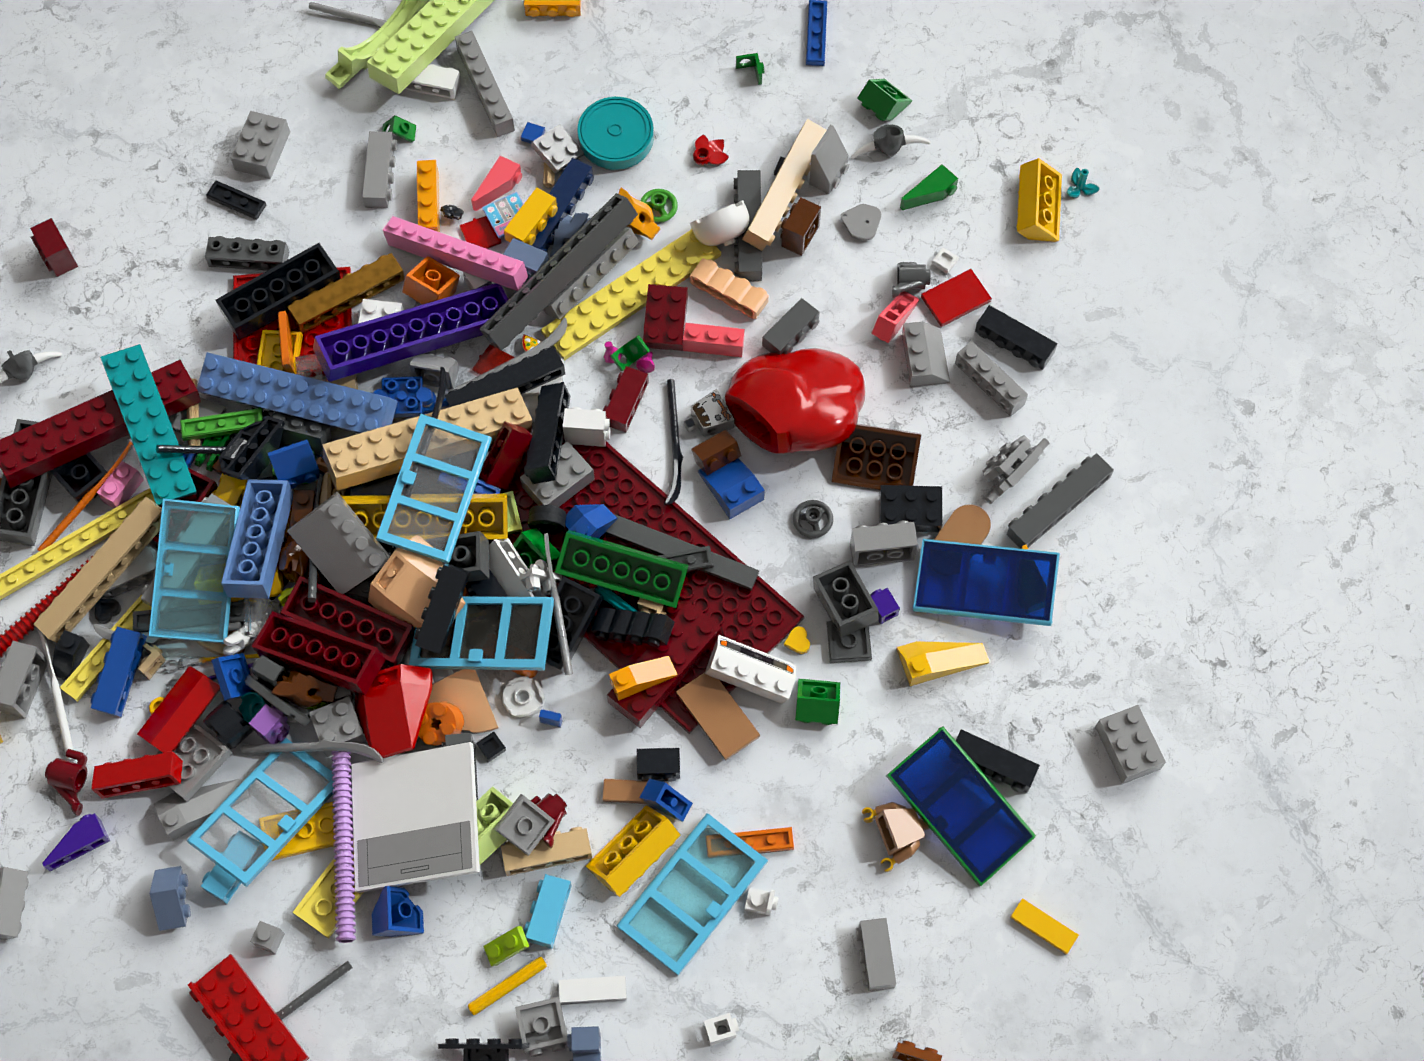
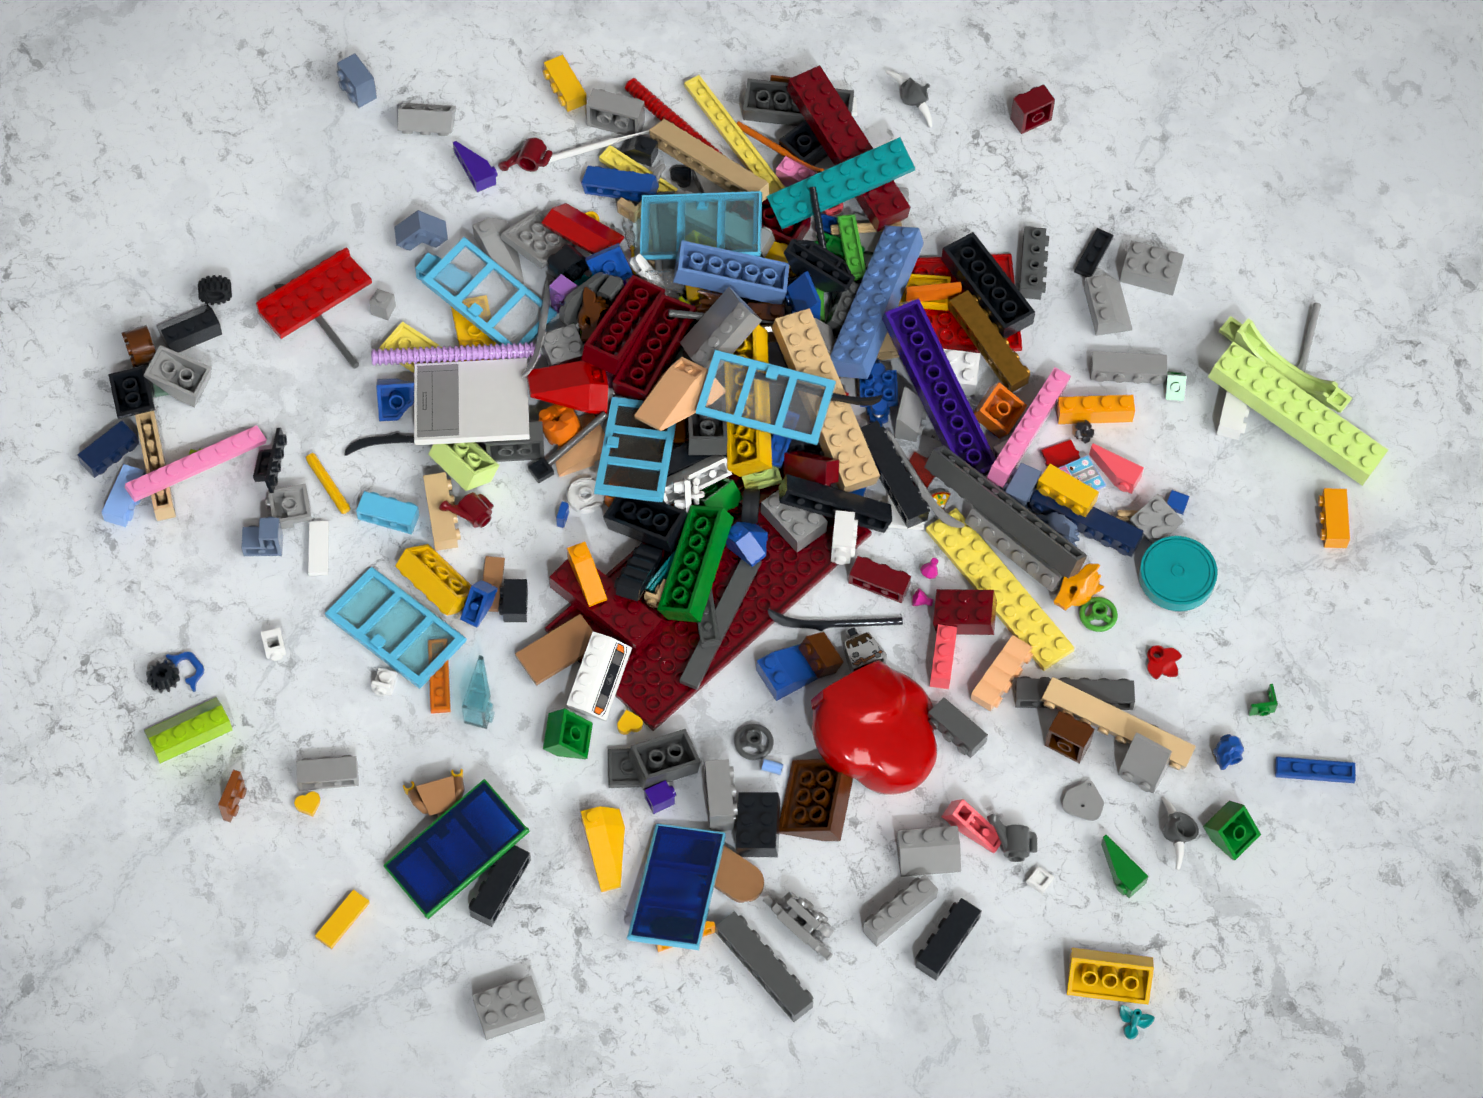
camera: 90 degrees right, 5 degrees down
(137, 774) = (526, 202): red brick -> none
(303, 189) = (1107, 305): none -> light grey slope
(442, 608) = (652, 409): black brick -> none
(448, 915) = (370, 441): none -> black piece
(458, 703) = (578, 437): none -> dark grey bar
(484, 83) = (1230, 456): light grey brick -> none
(506, 946) = (359, 479): lime plate -> none
(524, 824) = (458, 484): light grey tile -> none
(558, 615) = (660, 506): light grey piece -> none
(632, 351) = (931, 584): green bracket -> none
(722, 225) = (1066, 660): white cylinder -> none
(782, 791) = (477, 703): none -> clear light blue slope
(807, 97) = (1228, 751): none -> blue head
(841, 500) = (771, 766): none -> light blue piece
(911, 974) = (308, 804): none -> yellow tile
(956, 297) = (996, 887): red tile -> none

